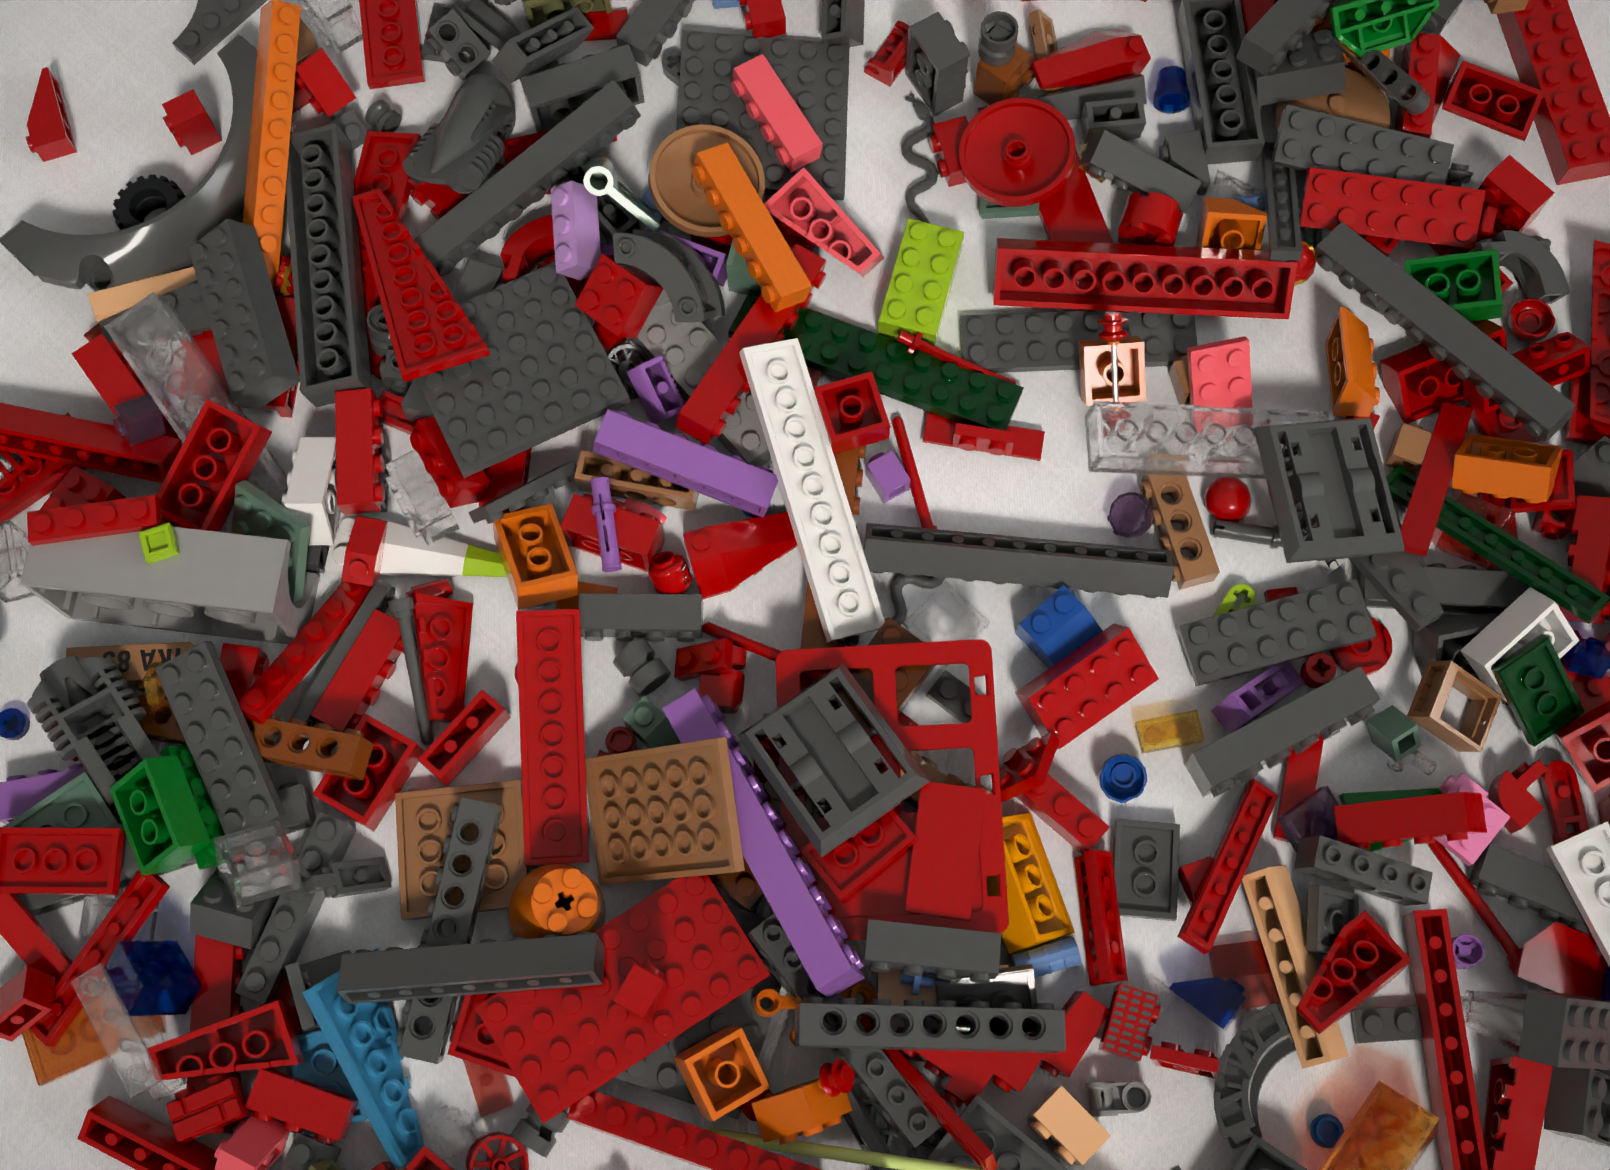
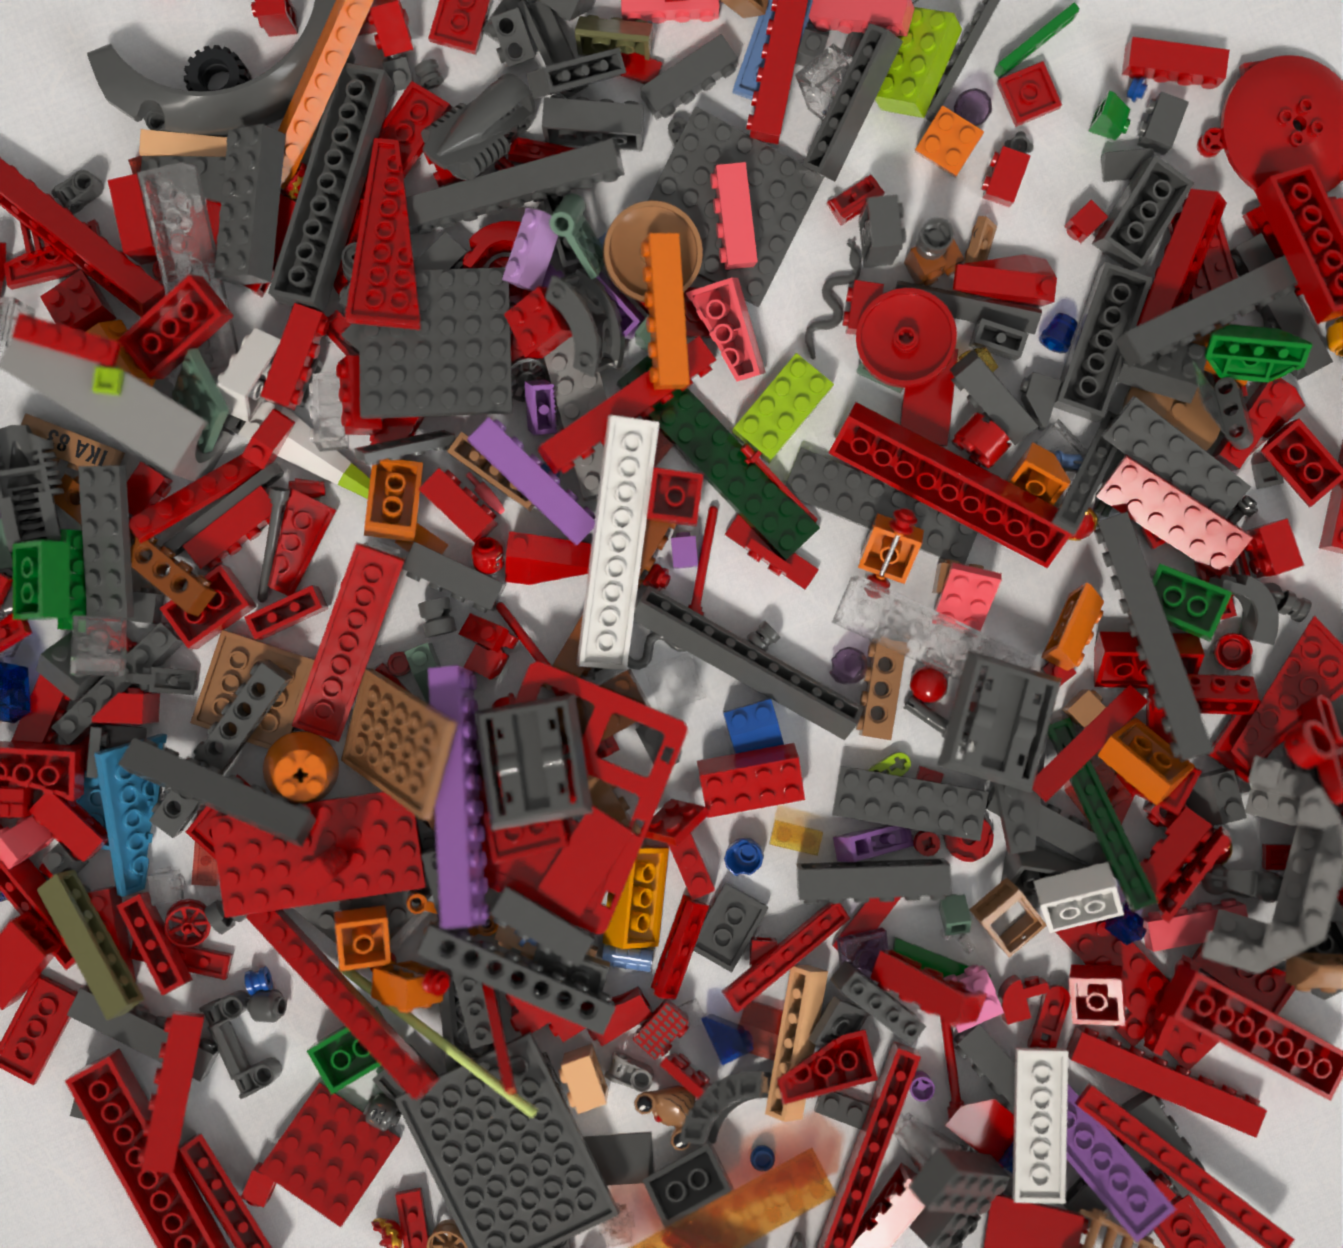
camera: 25 degrees right, 15 degrees up
(35, 391) = (75, 194): none -> dark grey piece
(139, 420) = (137, 260): clear purple brick -> none
(152, 685) = (73, 474): clear yellow tile -> none
(321, 930) = (130, 708): none -> red slope
(605, 524) = (450, 504): medium lavender pin -> none
(871, 514) = (657, 577): none -> red plate
(1021, 523) = (765, 631): none -> dark grey wheel
(1186, 1119) = (668, 1107): none -> medium nougat head
(1462, 134) = (1266, 475): none -> dark grey plate
(1486, 223) = (1241, 561): red tile -> none
(1538, 690) = (1072, 936): dark green tile -> none
(1568, 248) = (1295, 607): none -> dark grey wheel

